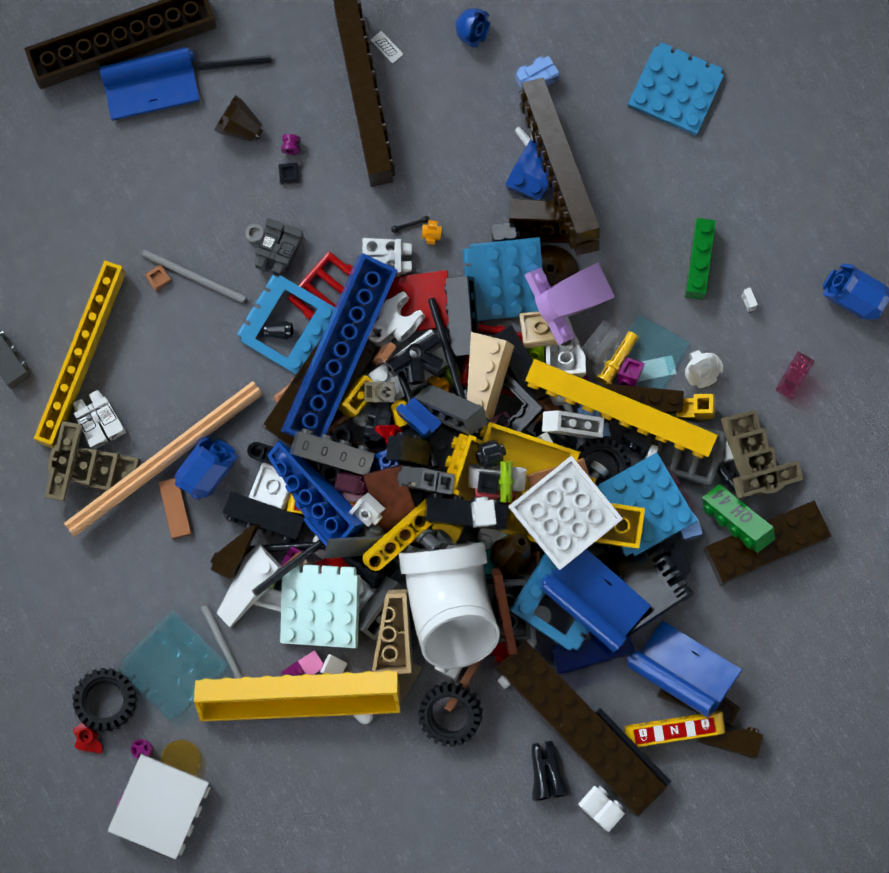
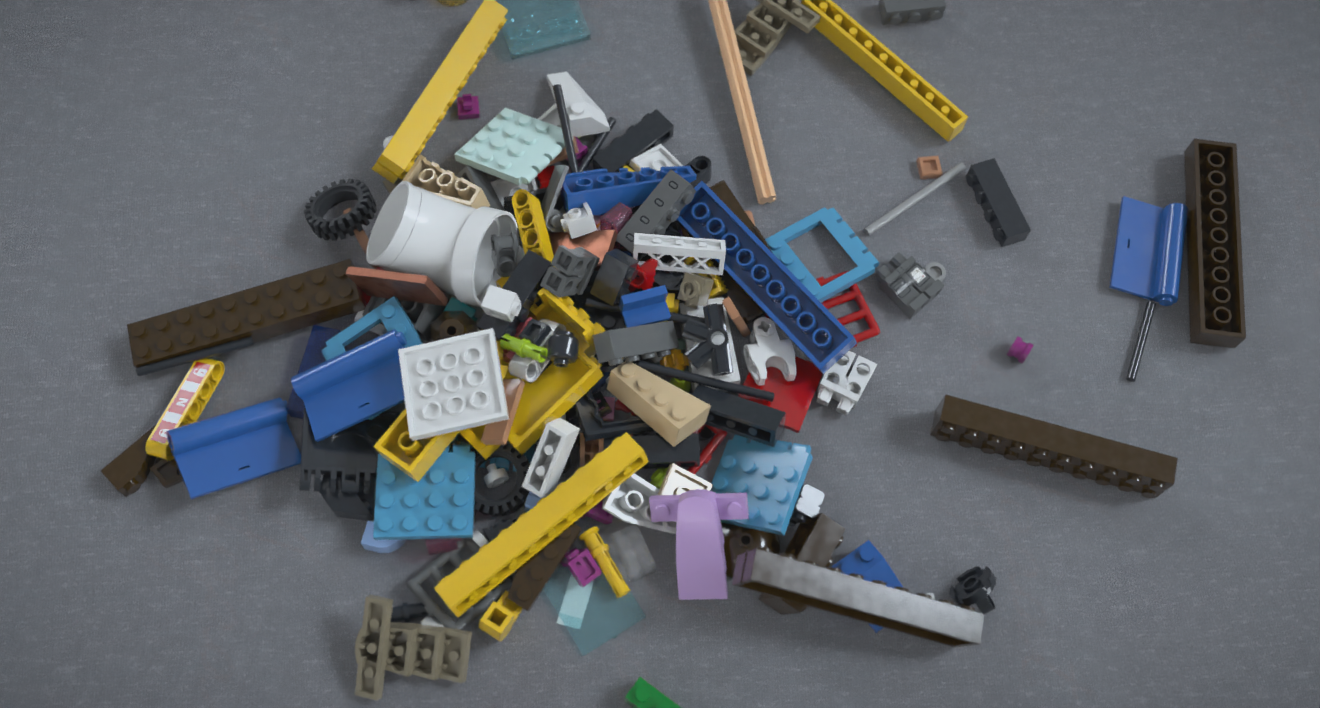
camera: 110 degrees right, 10 degrees down
(95, 414) = (807, 54): white hips -> none
(167, 210) = (997, 202): none -> black brick
(175, 509) = (687, 81): nougat tile -> none
(205, 467) = (709, 116): blue brick -> none
(221, 641) = (529, 64): light grey piece -> none
(230, 557) = (609, 99): dark brown slope -> none
(239, 121) = (1069, 308): dark brown cone -> none
(279, 330) = (816, 247): black cone -> none
(288, 173) = (988, 335): black tile -> none
(311, 663) = (468, 125): bright pink tile -> none
(333, 665) = (453, 139): white tile -> none
(356, 416) = (683, 248): none -> white fence
(386, 46) = (1096, 506): white sticker -> none
(394, 229) = (874, 410): black hinge -> none
(431, 232) = (851, 440): light orange gear -> none
(472, 26) = (1081, 607): blue cylinder -> none
(499, 101) = (975, 588): none -> black tile
(540, 68) = (990, 657): light blue brick -> none
(540, 786) = (209, 275): black piece -> none
(601, 808) = (162, 300): white brick -> none
(703, 369) = (541, 647): white tile -> none
(738, 518) = (348, 586): green brick -> none
(793, 533) = (309, 612): dark brown brick -> none

